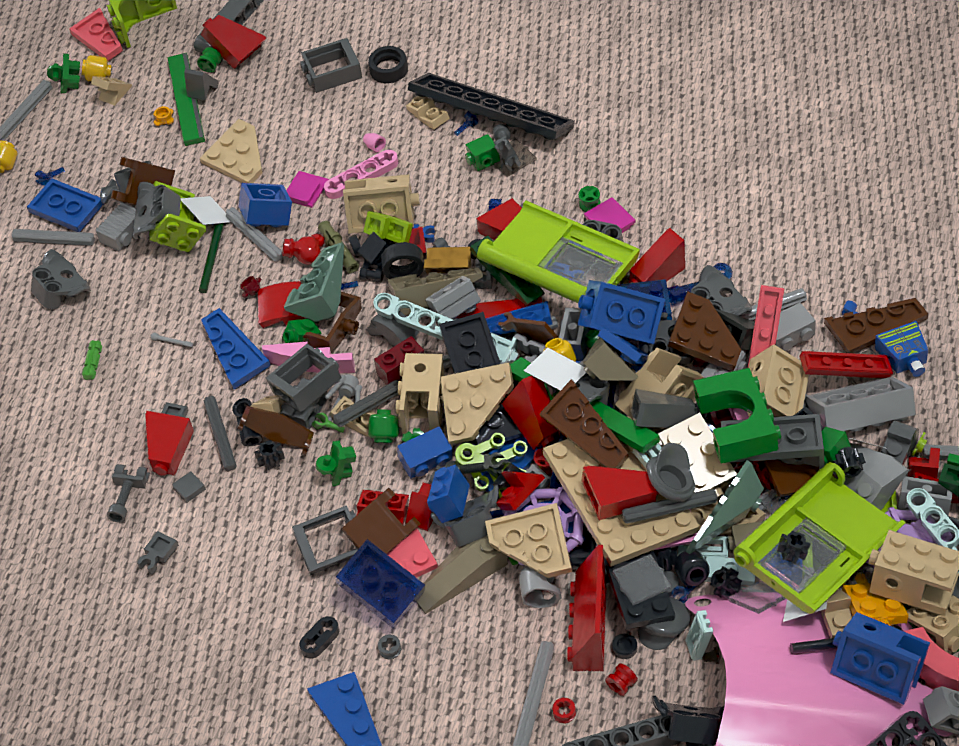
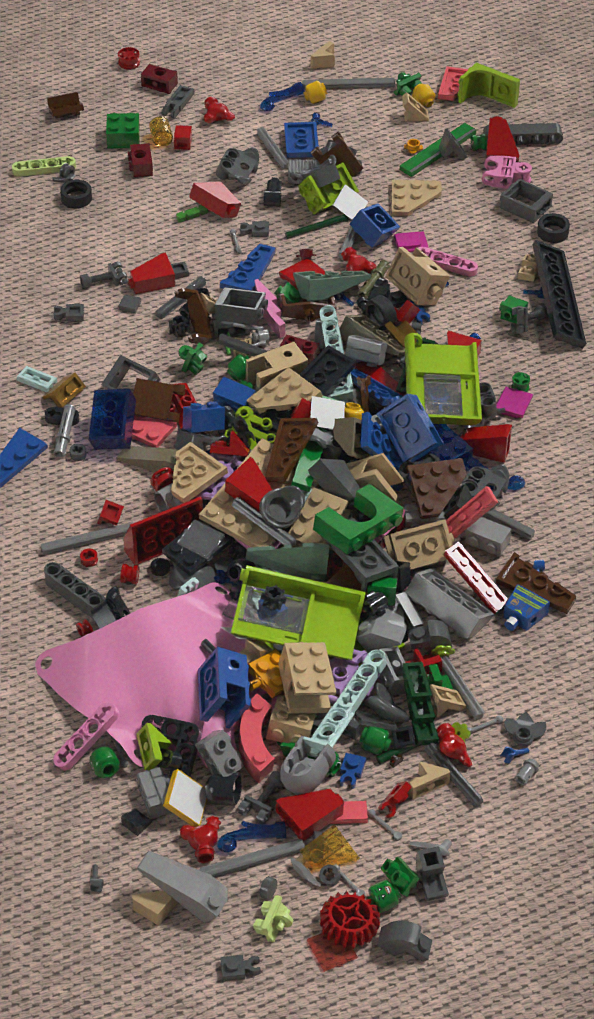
camera: 50 degrees right, 5 degrees down
(97, 324) = (216, 198): none -> red slope
(132, 272) = (273, 194): none -> black piece
(168, 311) = (257, 228): none -> dark grey plate
(238, 639) = (35, 380): none -> light aqua tile
(274, 60) = (514, 171): none -> bright pink piece
(278, 615) = (65, 390): none -> pearl gold panel
(373, 662) = (63, 437): none -> light grey pin
(374, 139) = (479, 252): bright pink hose -> none
(388, 227) = (402, 290): lime slope -> none
(511, 579) = (163, 479): none -> red wheel
(517, 657) = (110, 513): none -> red panel

